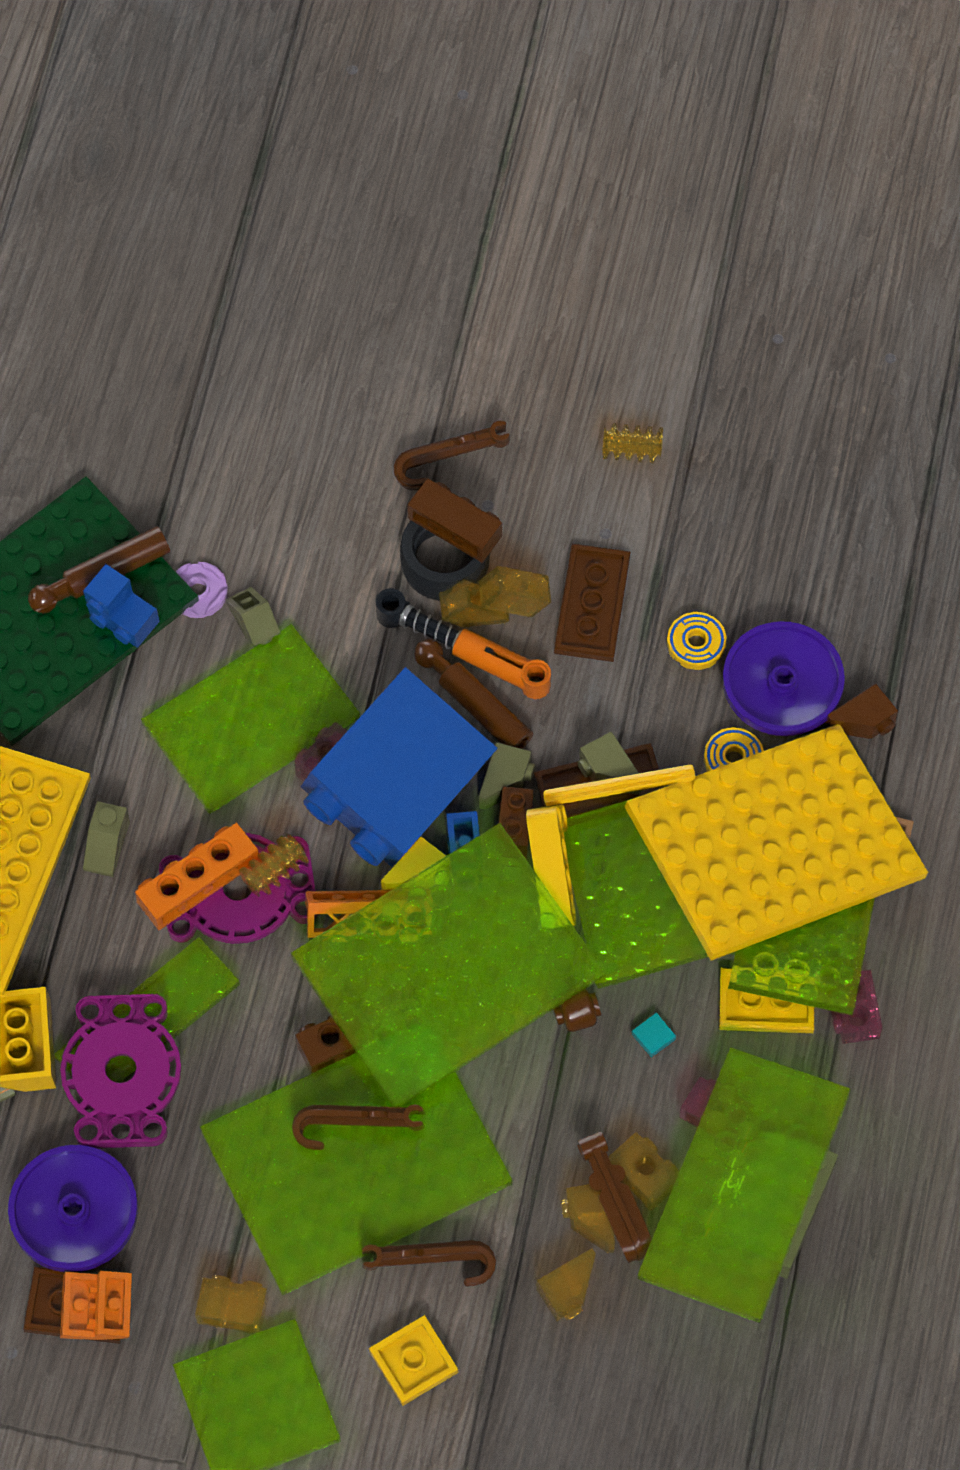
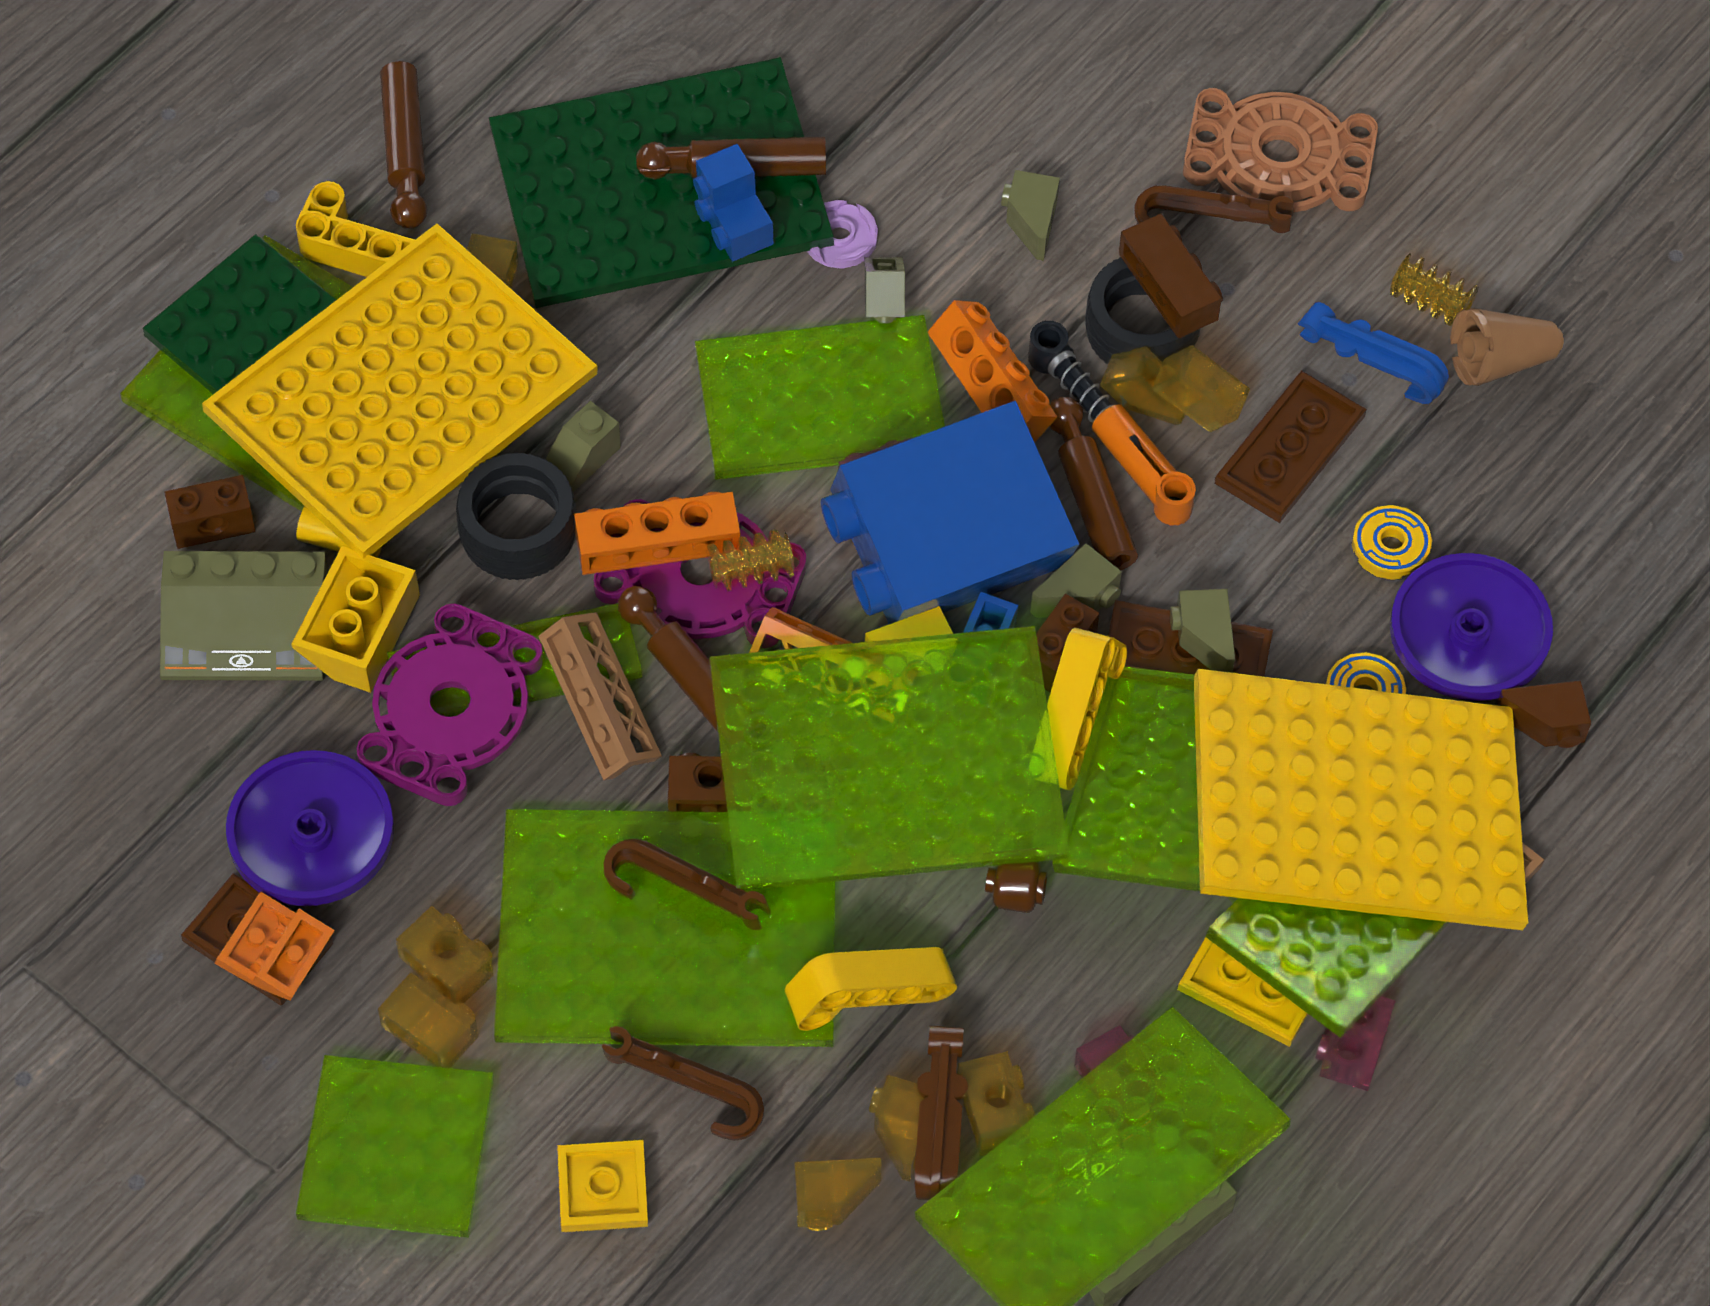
camera: 25 degrees right, 5 degrees down
(88, 875) = (508, 476): none -> black tyre
(218, 1016) = (592, 694): none -> medium nougat fence
(232, 1264) = (457, 976): none -> clear yellow brick
(256, 957) = (672, 649): none -> reddish brown piece
(324, 510) = (1031, 209): none -> olive slope
(349, 646) = (988, 365): none -> orange brick
(475, 356) = (1270, 116): none -> nougat piece
(517, 1130) = (867, 980): none -> yellow beam
(619, 785) = (1202, 651): yellow axle -> none
(620, 505) = (1379, 350): none -> blue piece
(653, 1035) = (1094, 957): teal tile -> none
(698, 463) = (1501, 344): none -> medium nougat cone

